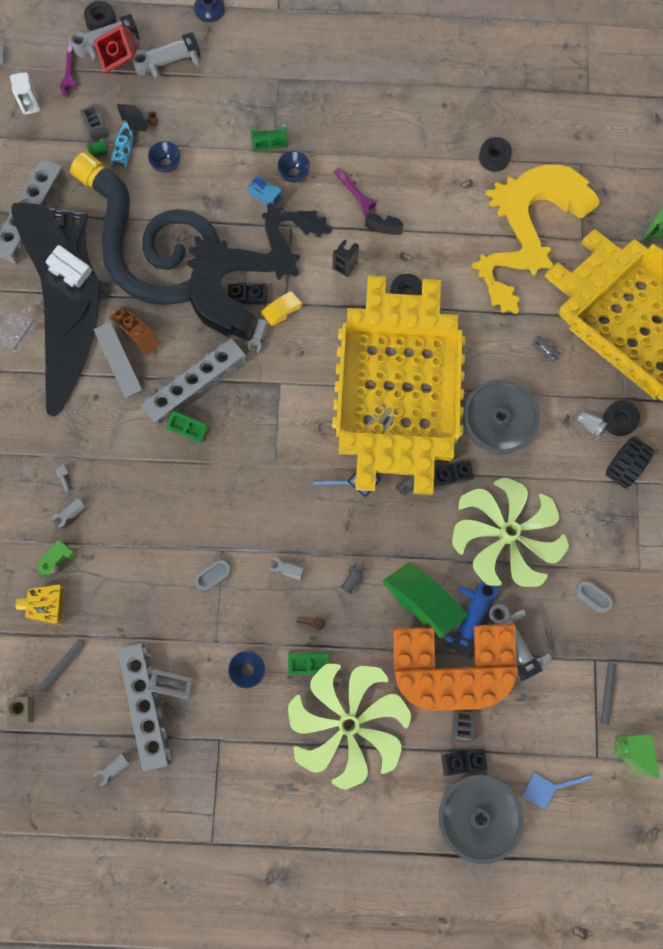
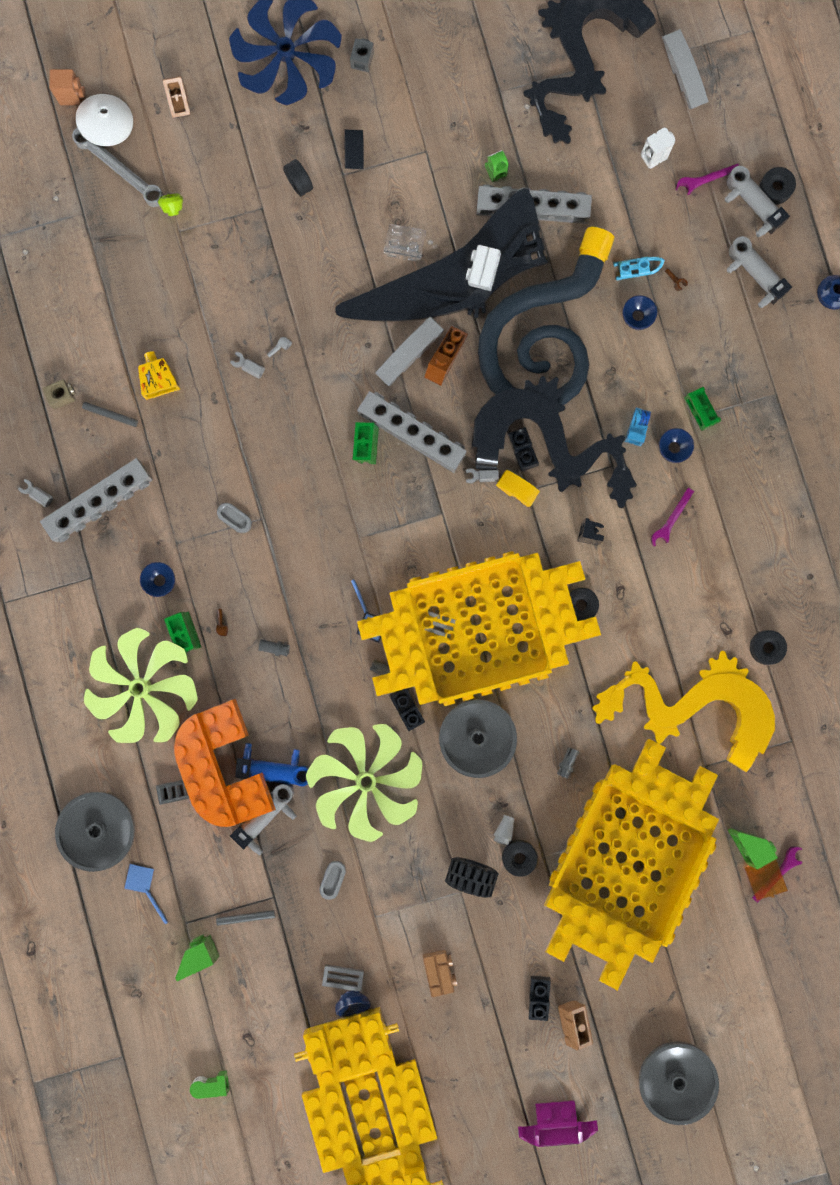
camera: 75 degrees right, 10 degrees up
(54, 558) = (205, 370): bright green leg -> none
(94, 123) = (647, 236): dark grey slope -> none
(97, 148) = (625, 243): green bush -> none
(115, 47) = (741, 217): red slope -> none
(133, 117) = (673, 265): black slope -> none
(153, 680) = (119, 500): light grey tile -> none
(287, 569) = (262, 584): light grey bar -> none
(389, 226) = (645, 564): black slope -> none
(425, 598) = (273, 720): green slope -> none
(464, 762) = (142, 802): black slope -> none

